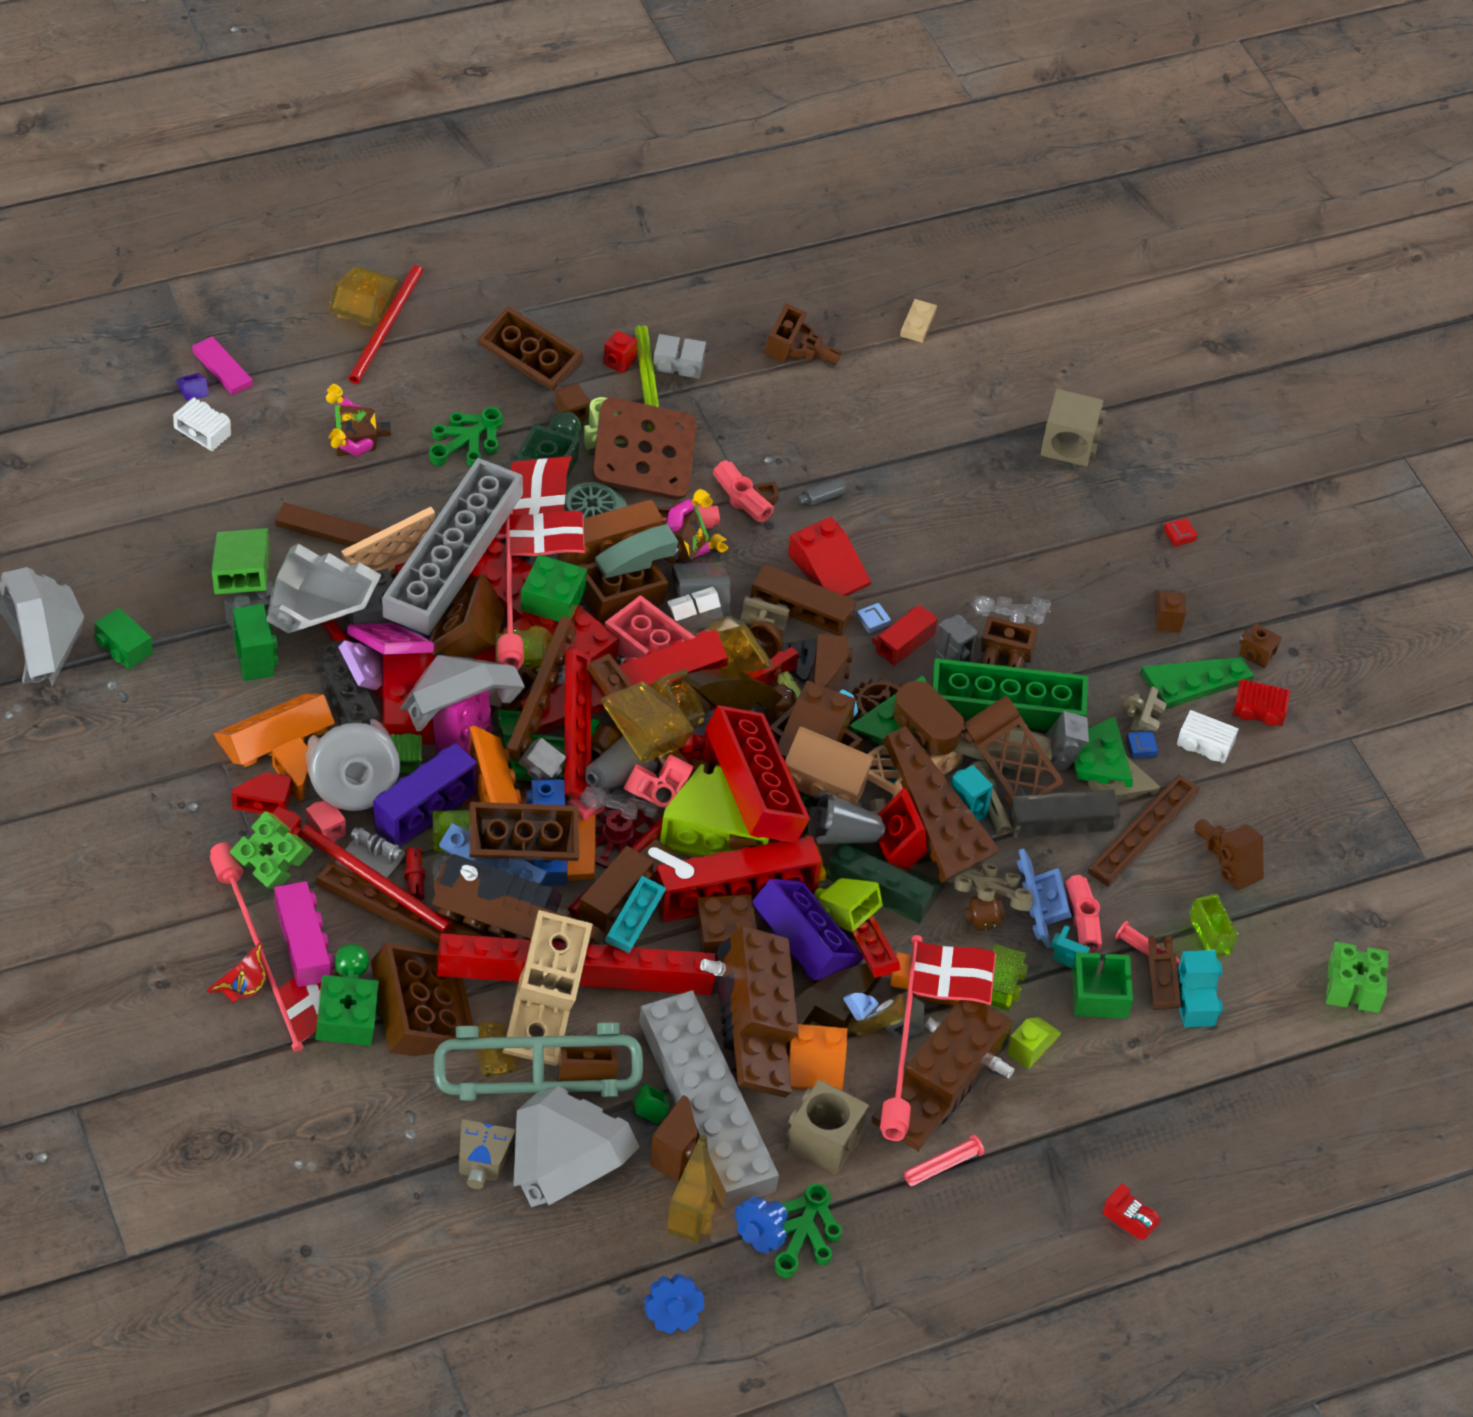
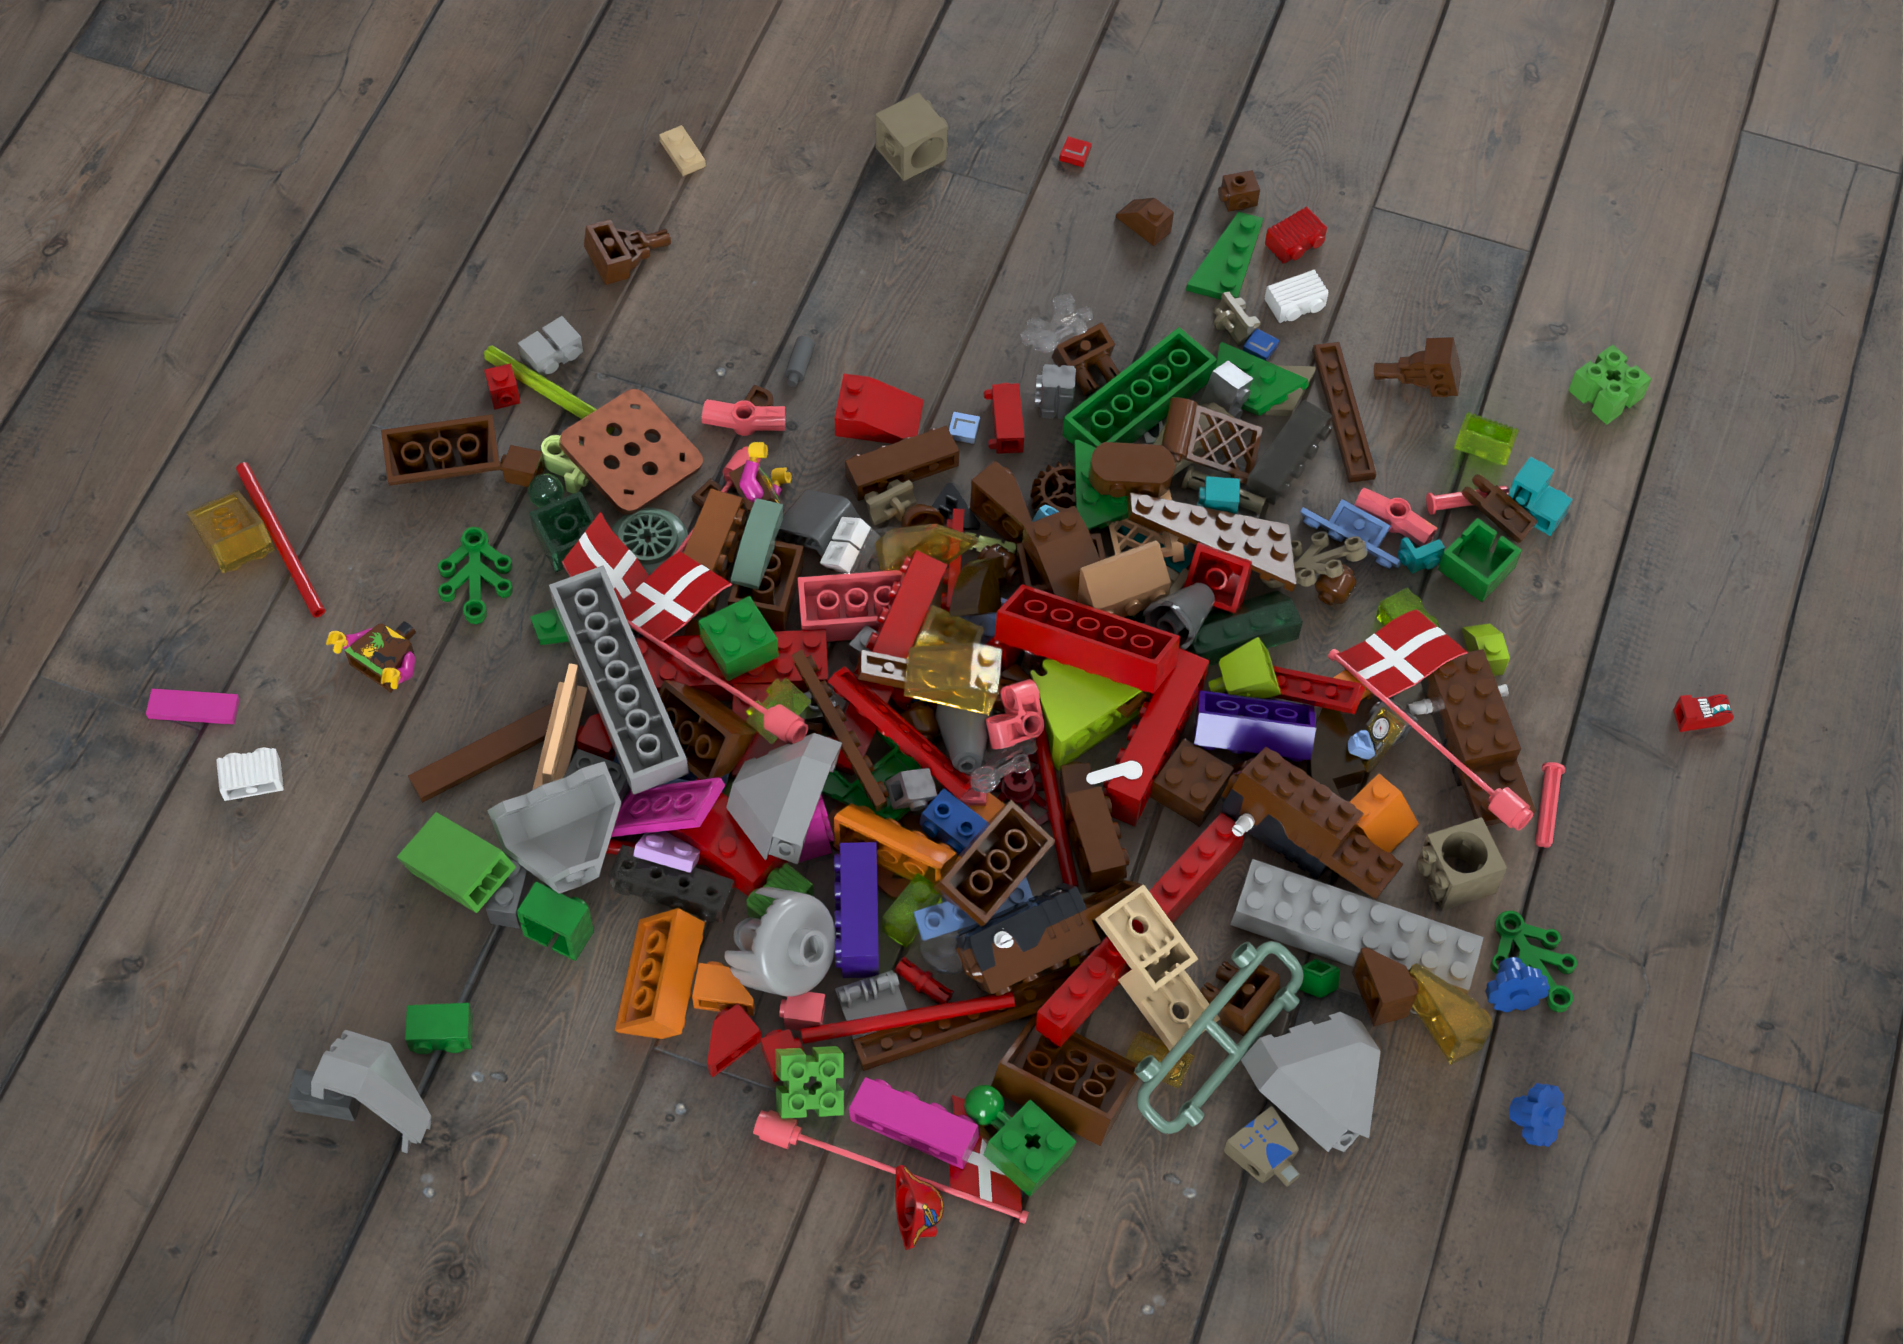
camera: 45 degrees left, 10 degrees up
(193, 386) = (191, 748): dark purple slope -> none
(635, 914) = (1145, 842): teal plate -> none

